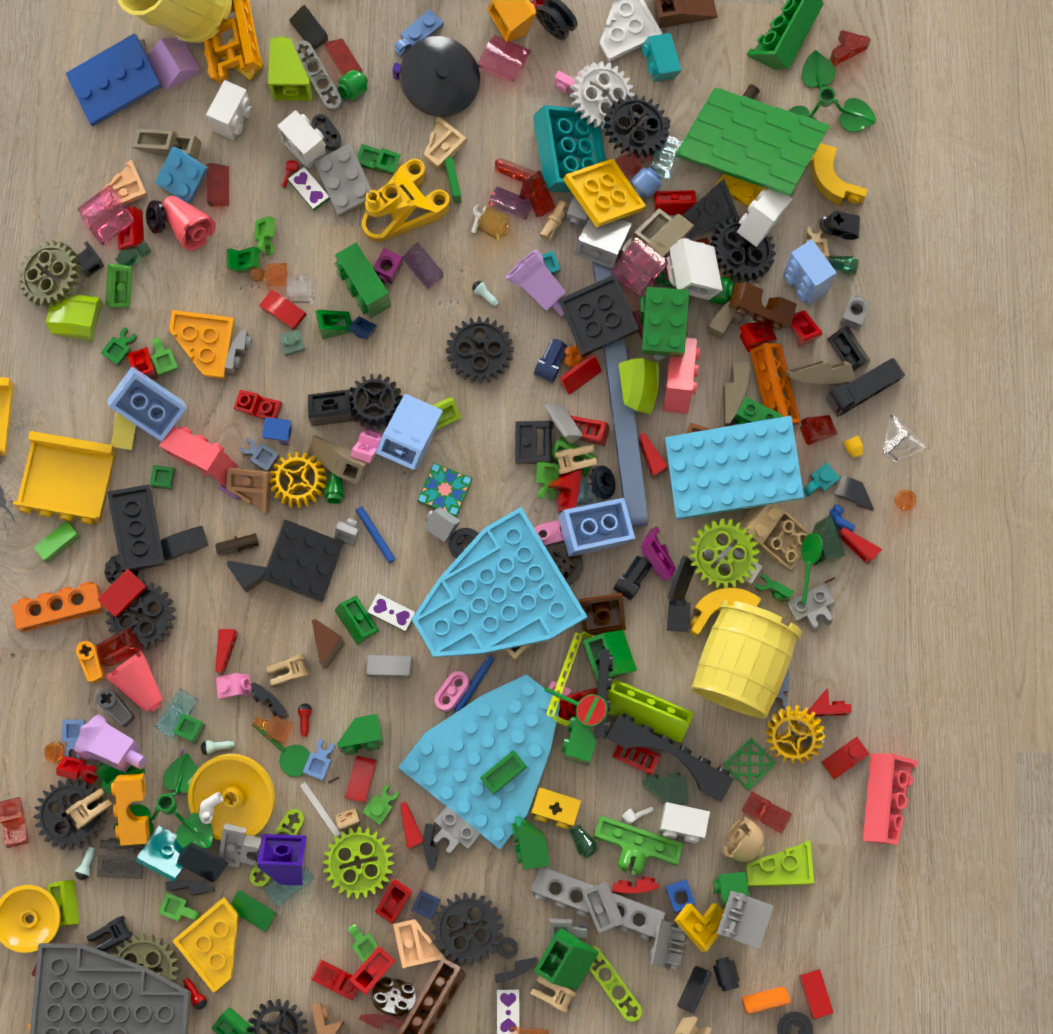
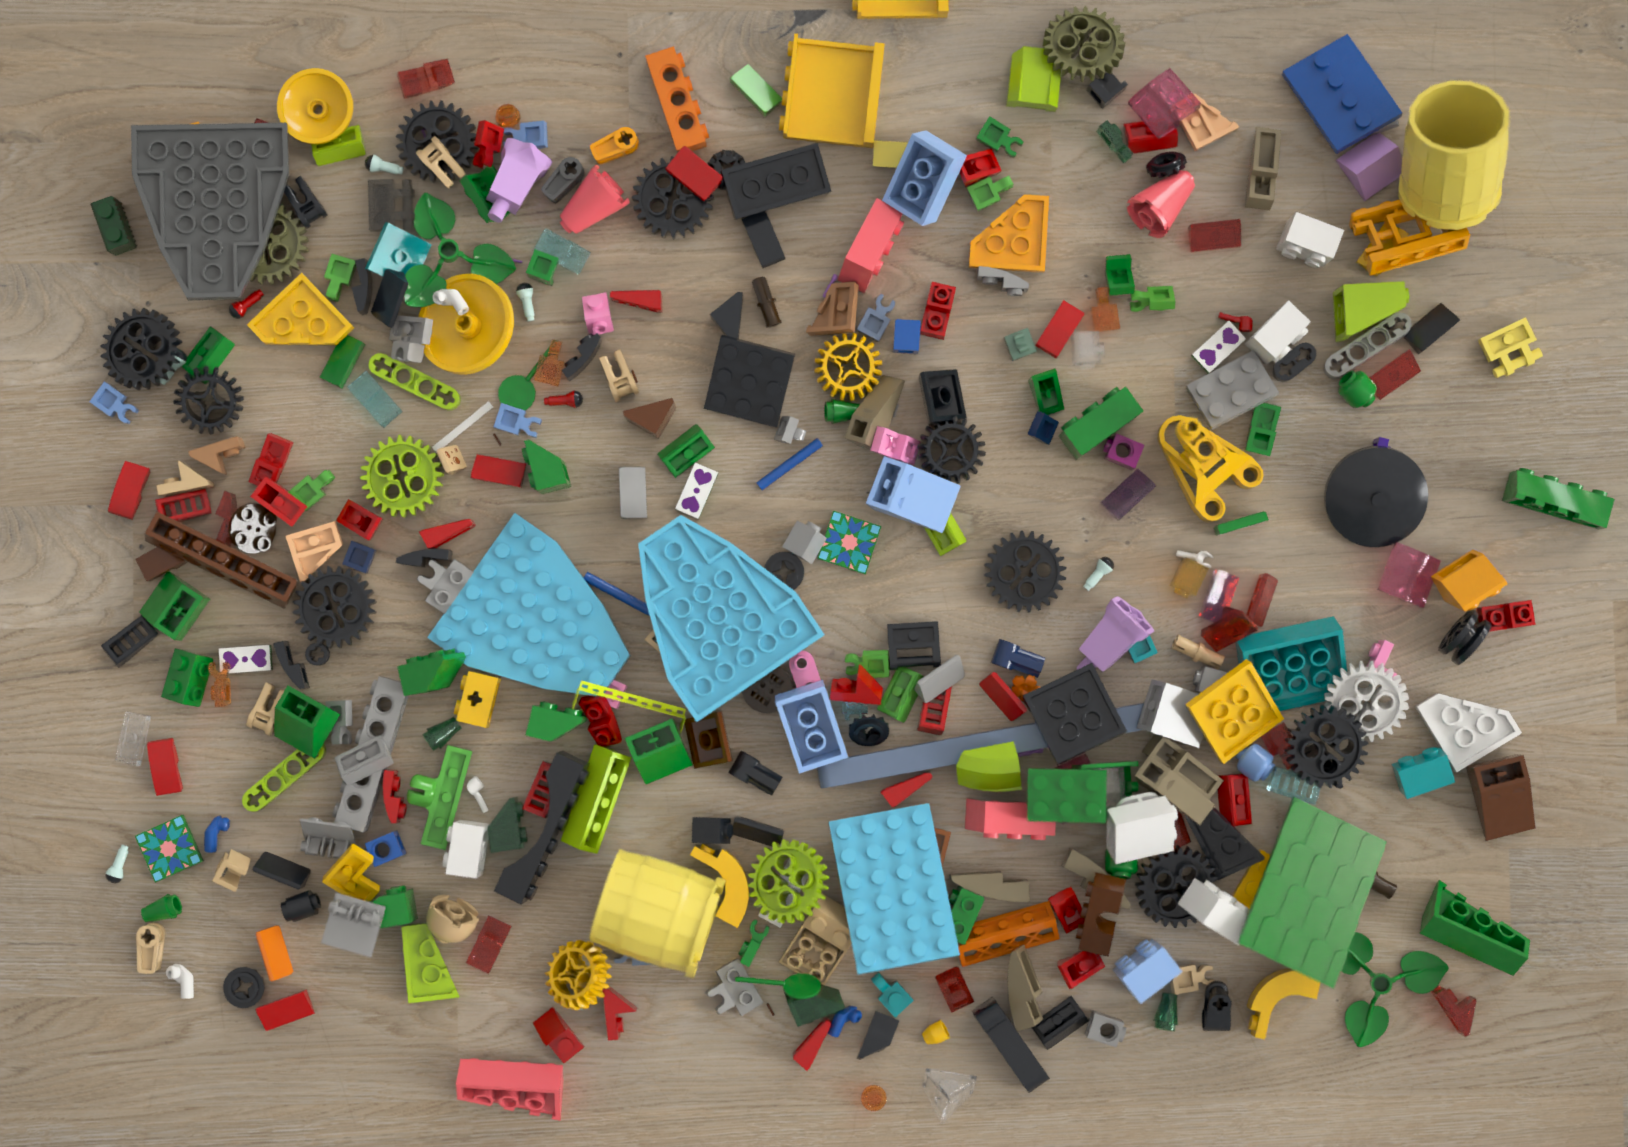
camera: 85 degrees right, 10 degrees up
(118, 285) = (1074, 128): bright green slope -> none
(118, 648) = (631, 175): clear red slope -> none
(130, 828) = (423, 212): light orange arch -> none
(162, 477) = (842, 206): green tile -> none
(181, 175) = (1222, 190): dark azure plate -> none
(283, 858) = (399, 389): dark purple slope -> none
(379, 807) = (468, 494): bright green plate -> none
(422, 28) = (1436, 466): medium blue plate -> none
(443, 143) = (1289, 507): tan wing -> none
(451, 691) = (607, 569): bright pink plate -> none
(503, 772) = (512, 635): green tile -> none
(568, 463) = (889, 688): tan piece -> none
(590, 710) = (585, 732): piece -> none
(604, 684) = (595, 746): black plate -> none
(639, 266) = (1138, 759): clear pink slope -> none
(658, 555) = (784, 802): magenta wing -> none
(761, 752) = (559, 936): green window -> none

